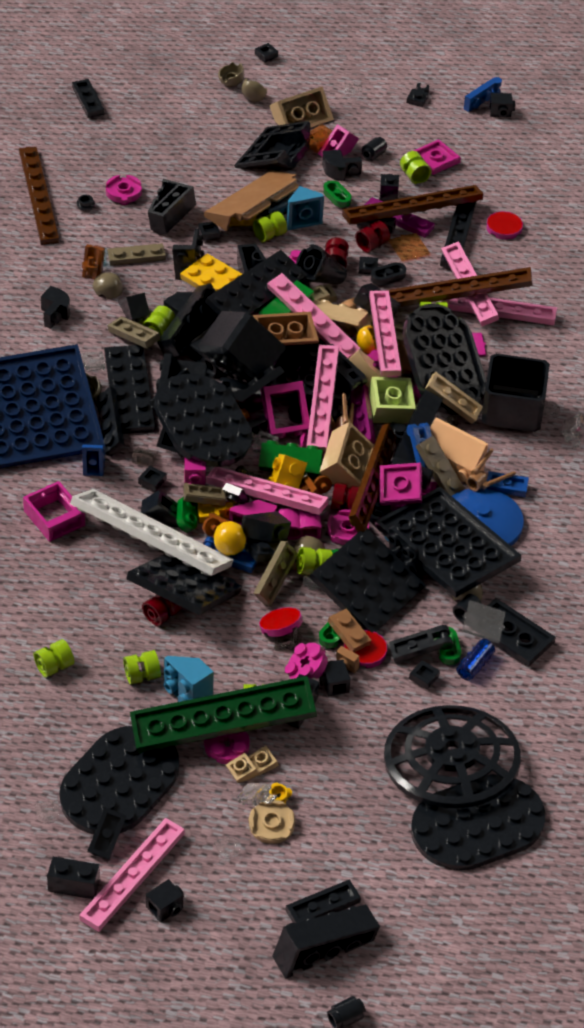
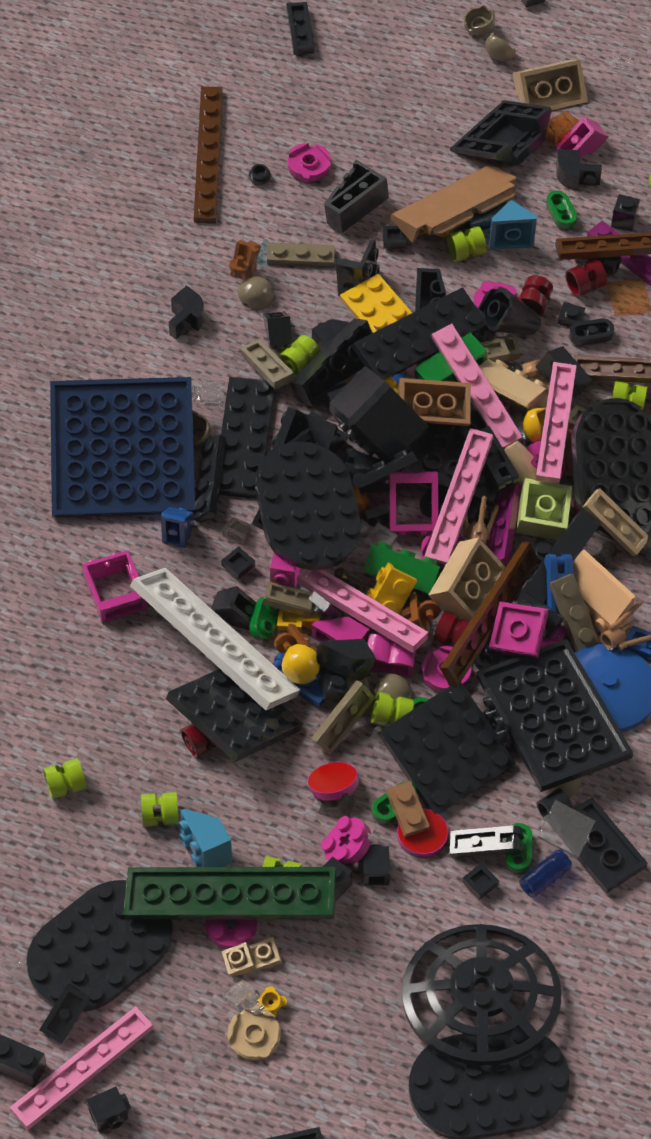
camera: 15 degrees right, 10 degrees up
(350, 659) = (396, 844): medium nougat plate -> none
(374, 148) = (624, 152): black brick -> none

